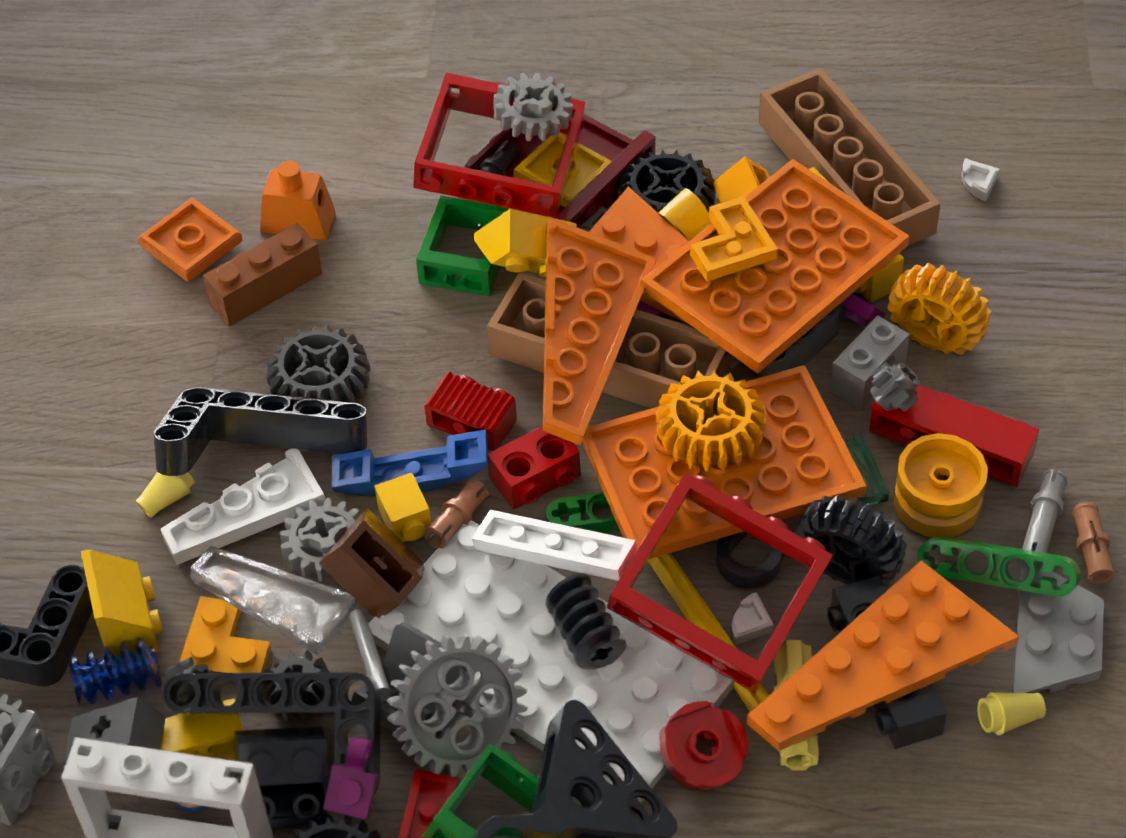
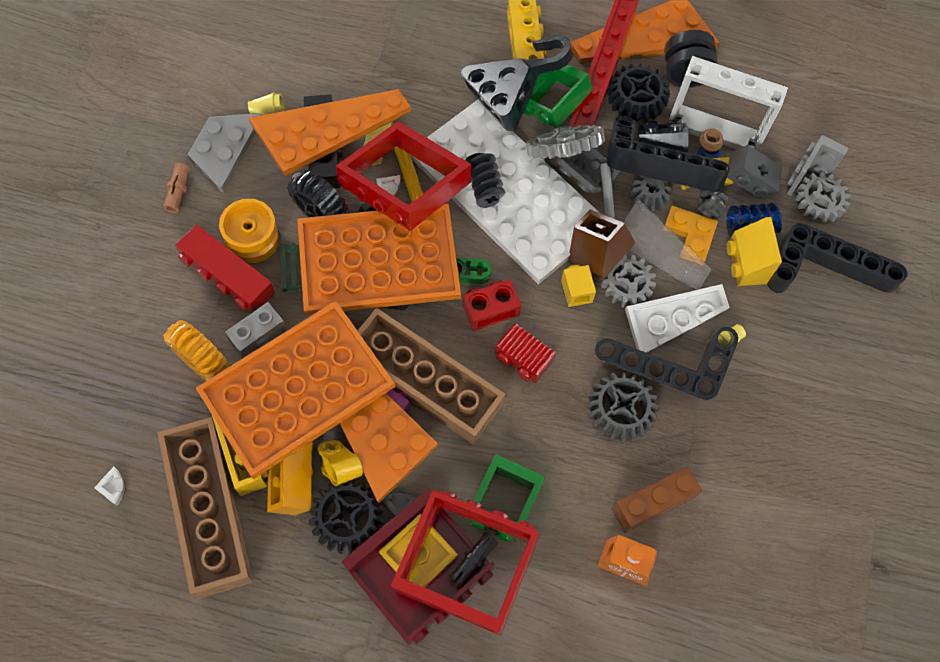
camera: 175 degrees left, 15 degrees up
(190, 239) = (709, 554): orange plate -> none
(352, 787) = (626, 114): magenta plate -> none
(433, 468) = (568, 322): blue slope -> none
(456, 513) = (545, 281): nougat pin -> none
(516, 241) = (465, 452): yellow slope -> none
(532, 106) = (446, 565): light grey gear -> none
(554, 545) = (493, 223): white plate -> none
(588, 310) = (435, 374): orange wing -> none
(692, 767) = (445, 117): red plate -> none
(719, 417) = (374, 255): light orange gear -> none
(740, 241) = (316, 387): light orange plate -> none
(895, 387) = (253, 276): dark grey gear -> none
(998, 561) = (238, 174): green beam -> none
(1045, 509) = (198, 204): light grey pin -> none

